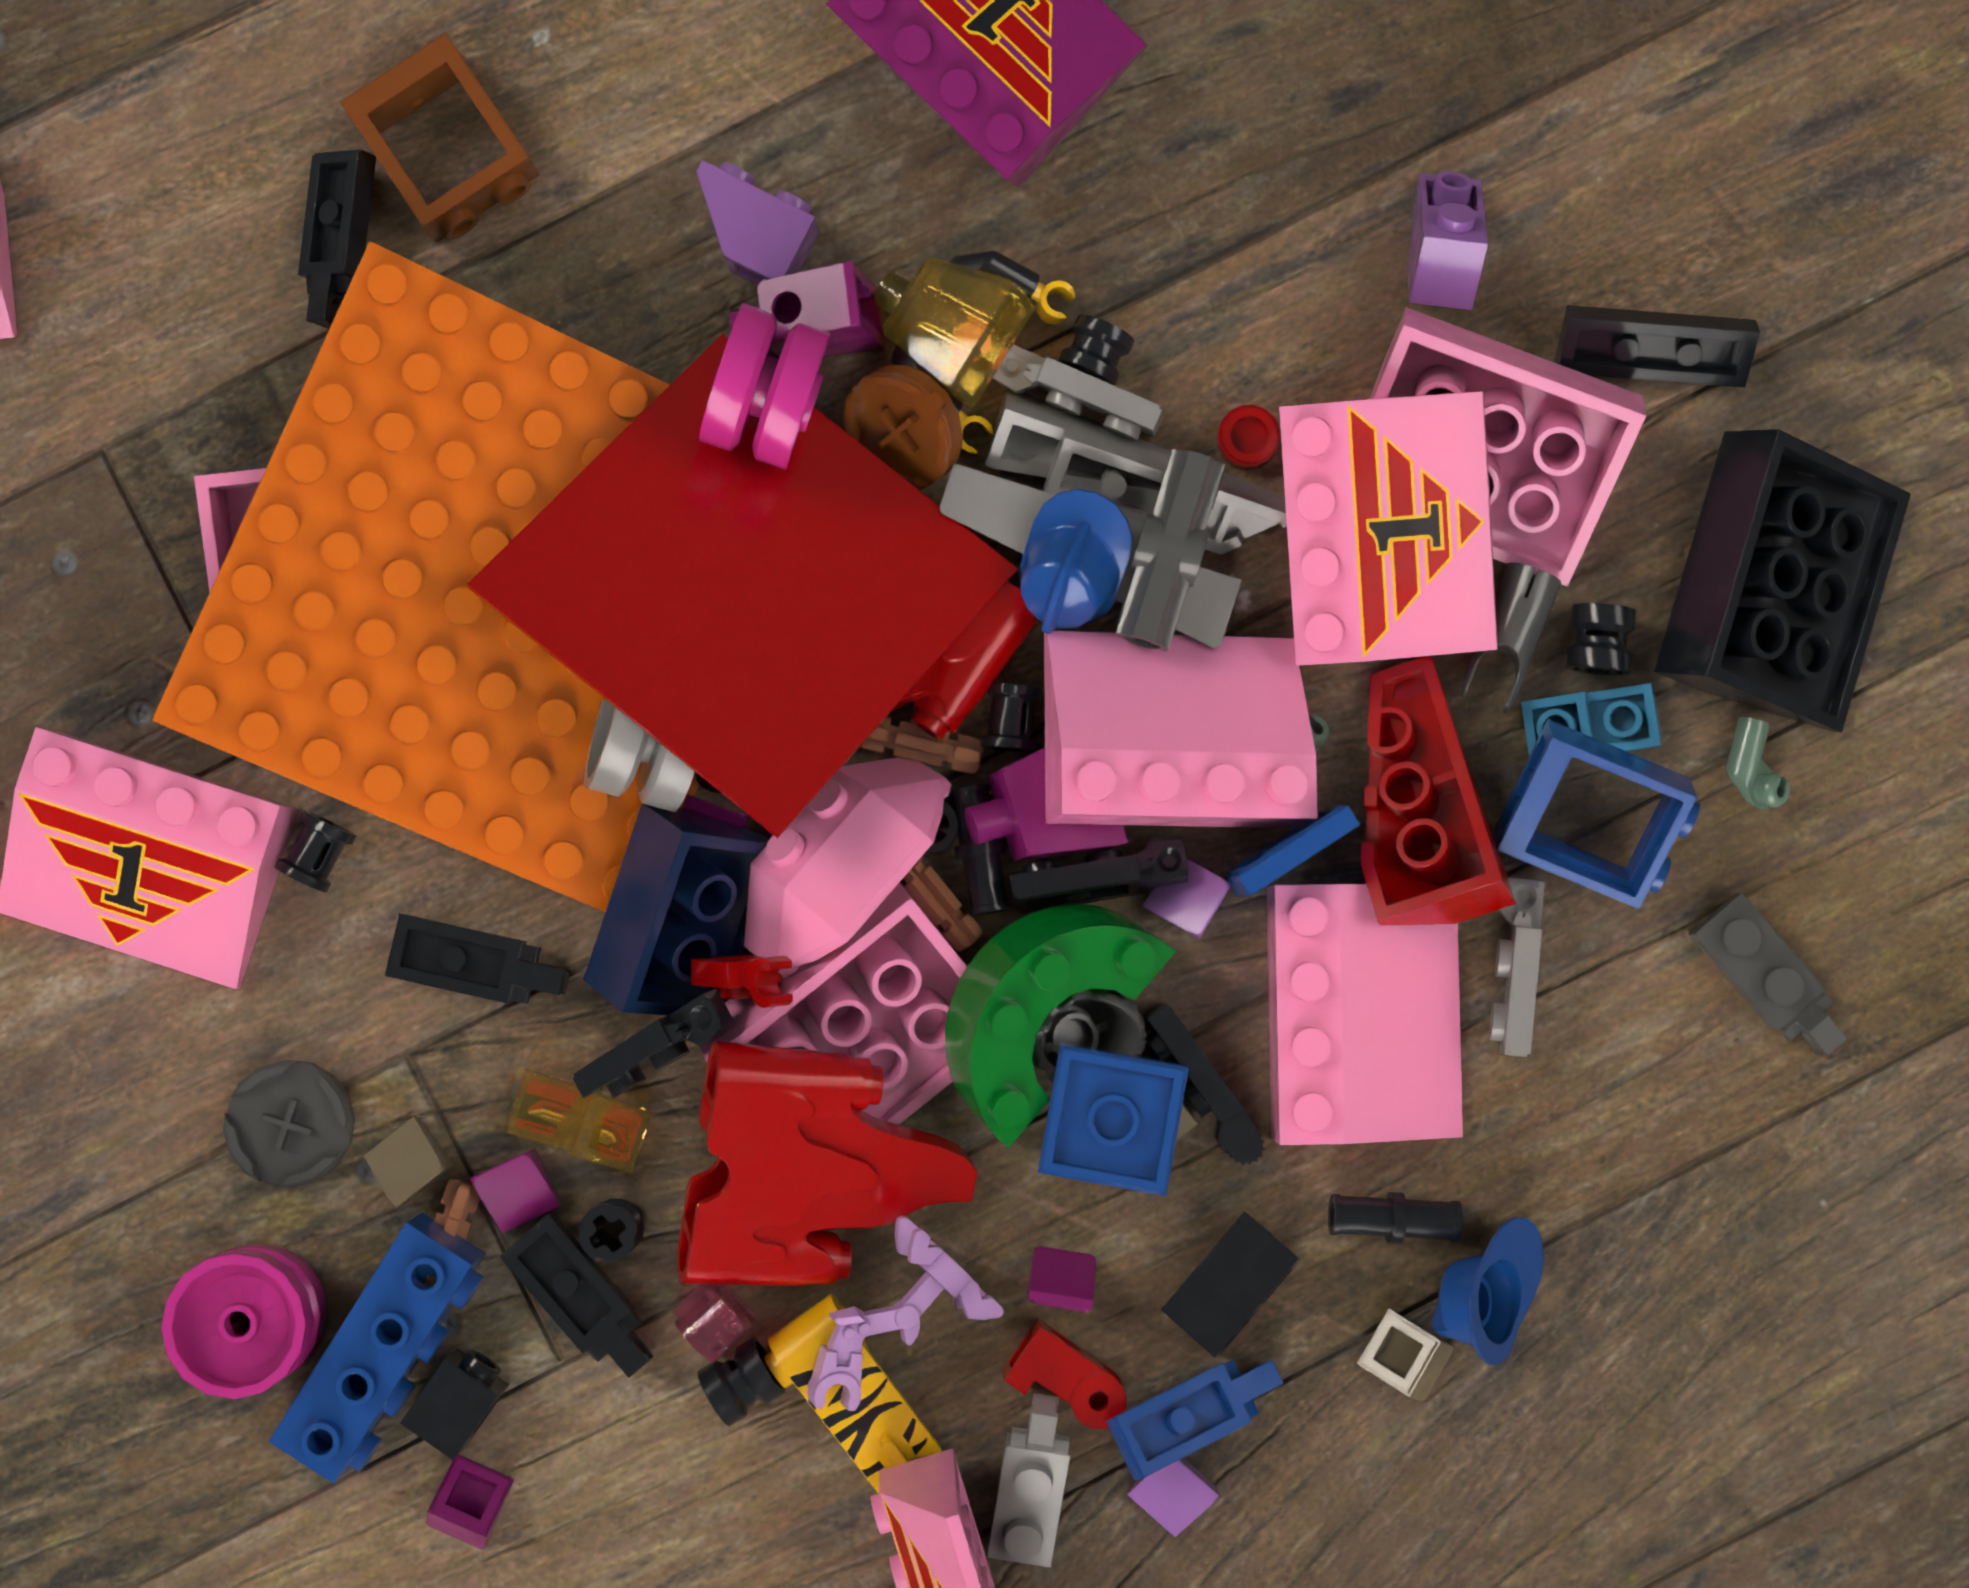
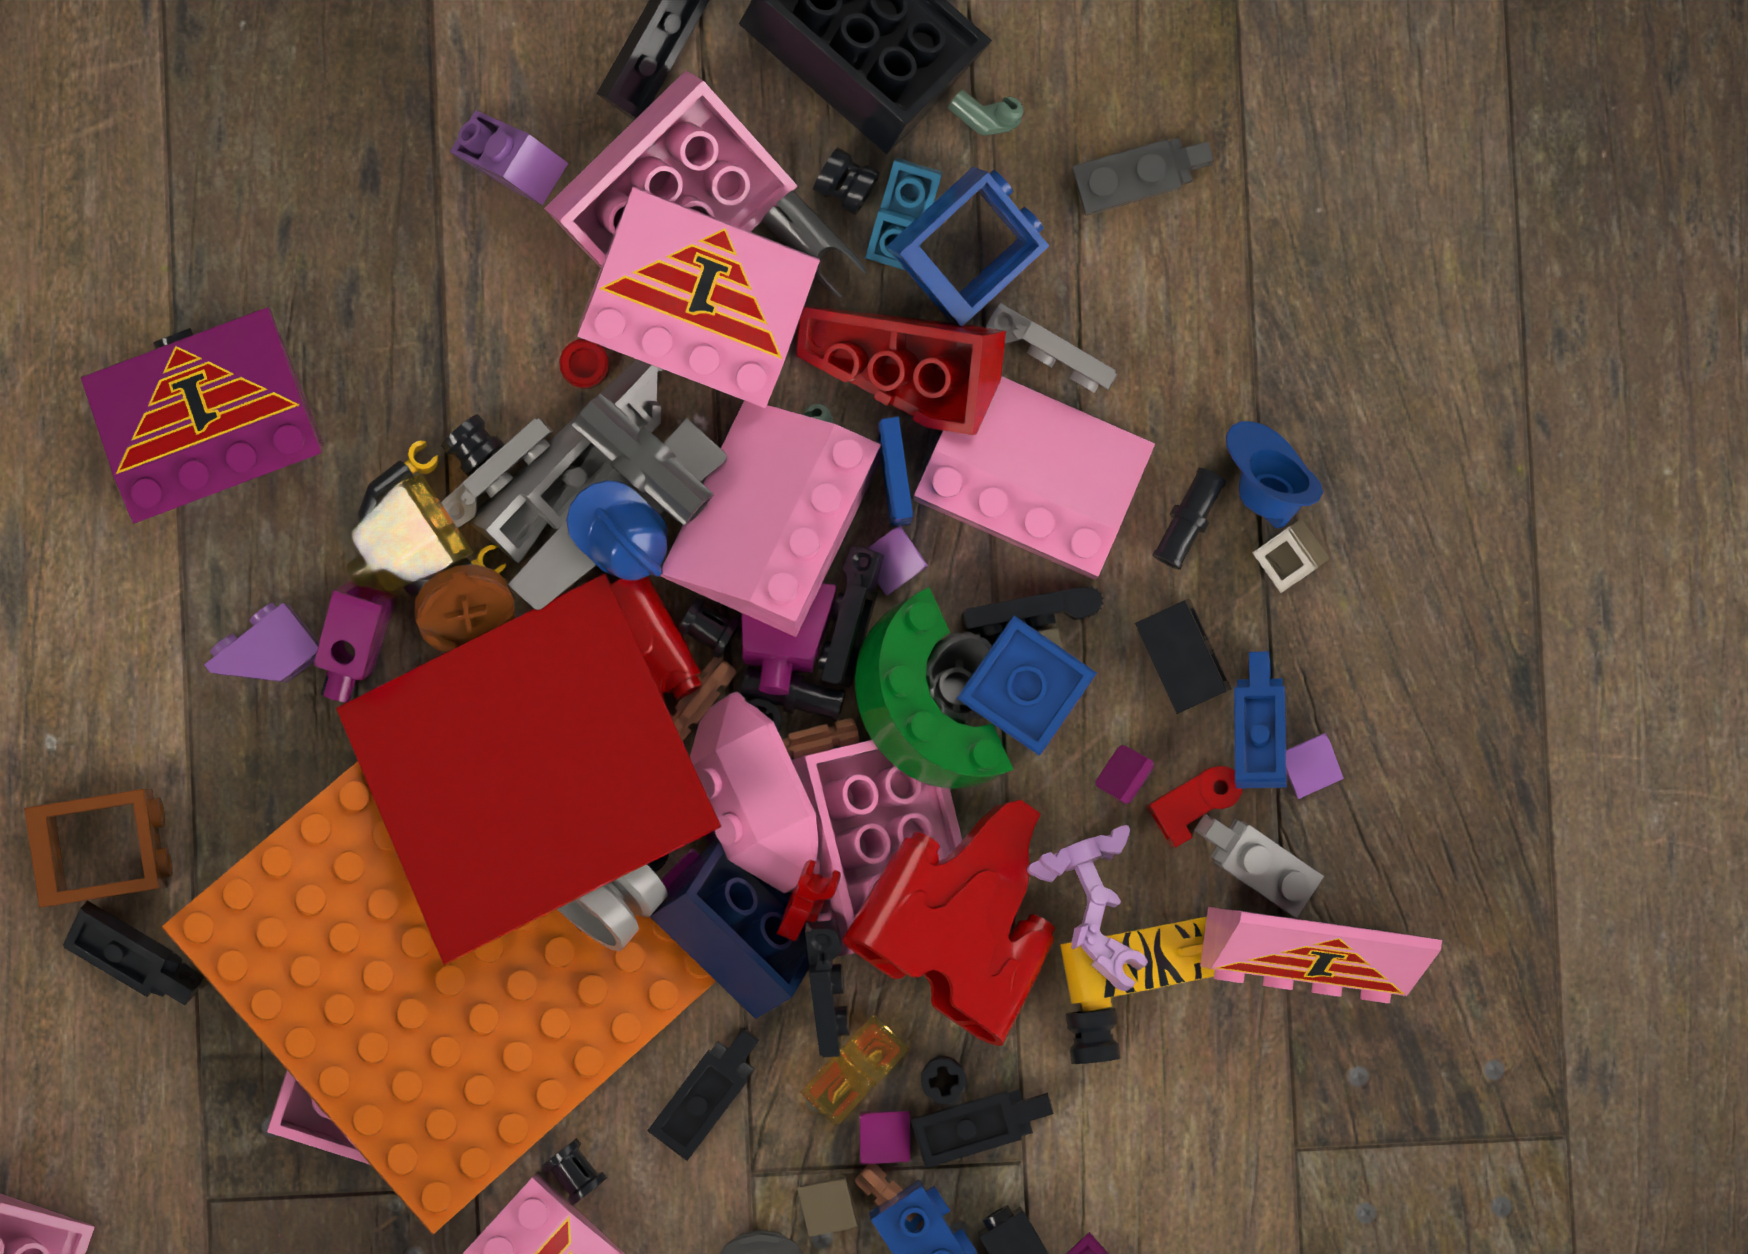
camera: 65 degrees left, 0 degrees up
(713, 1319) = (1038, 1034): clear pink leg -> none
(765, 387) = (401, 687): dark pink wheel -> none

